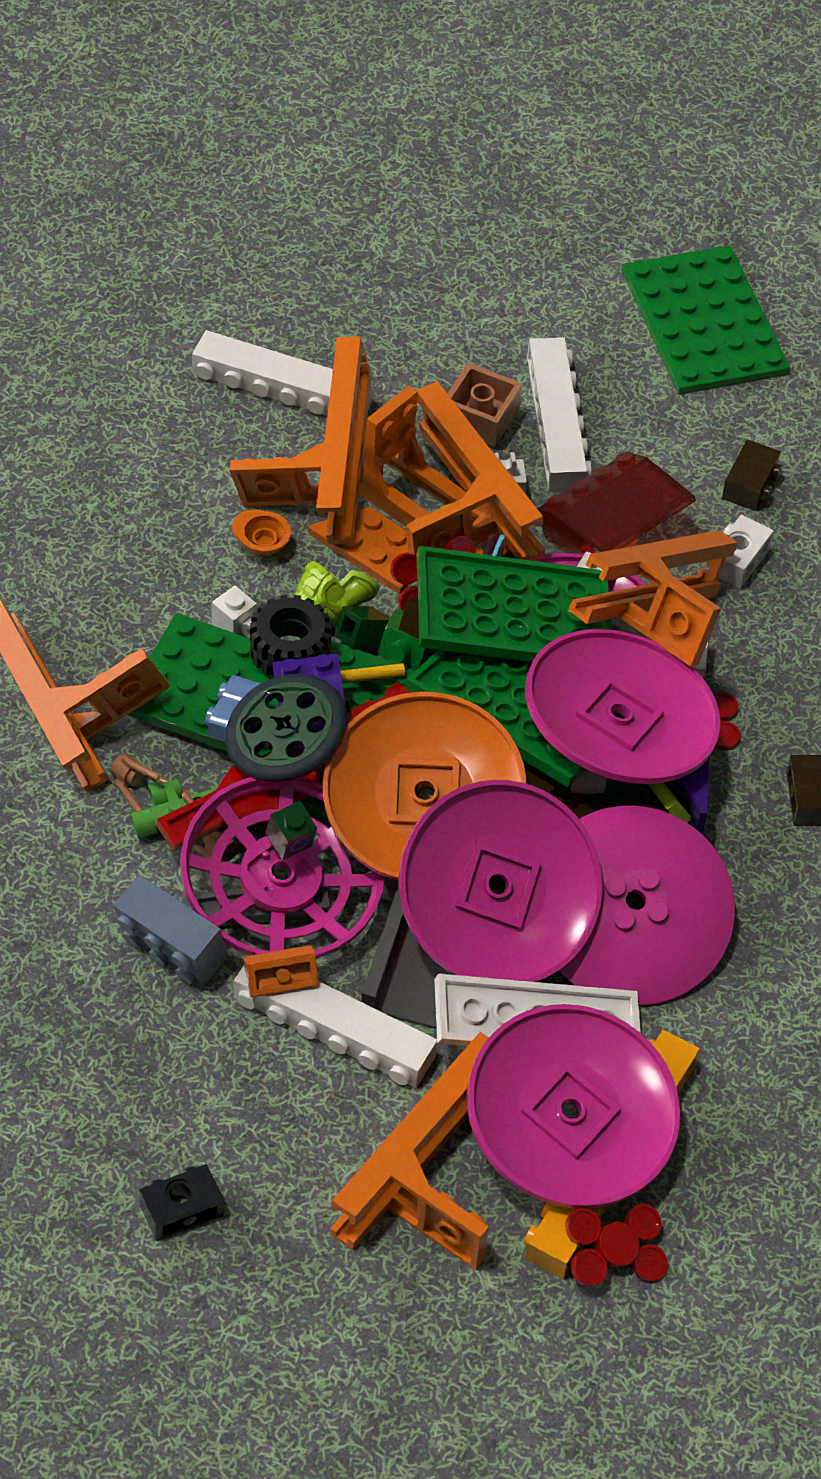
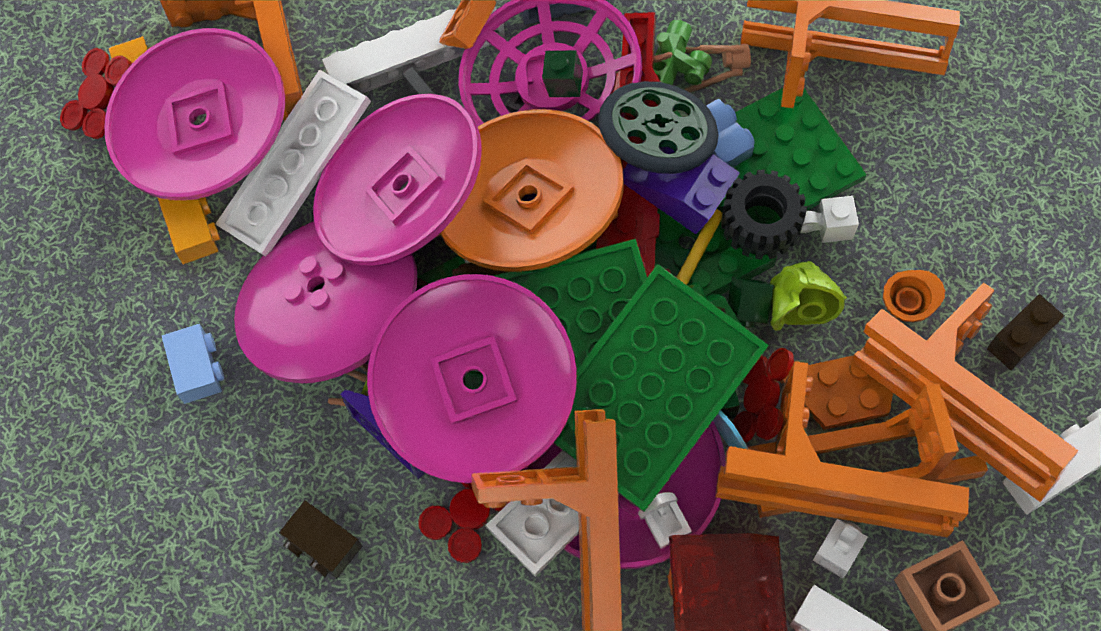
camera: 135 degrees right, 15 degrees up
(220, 446) = (1025, 332): none -> dark brown brick
(771, 977) = (192, 363): none -> light blue brick

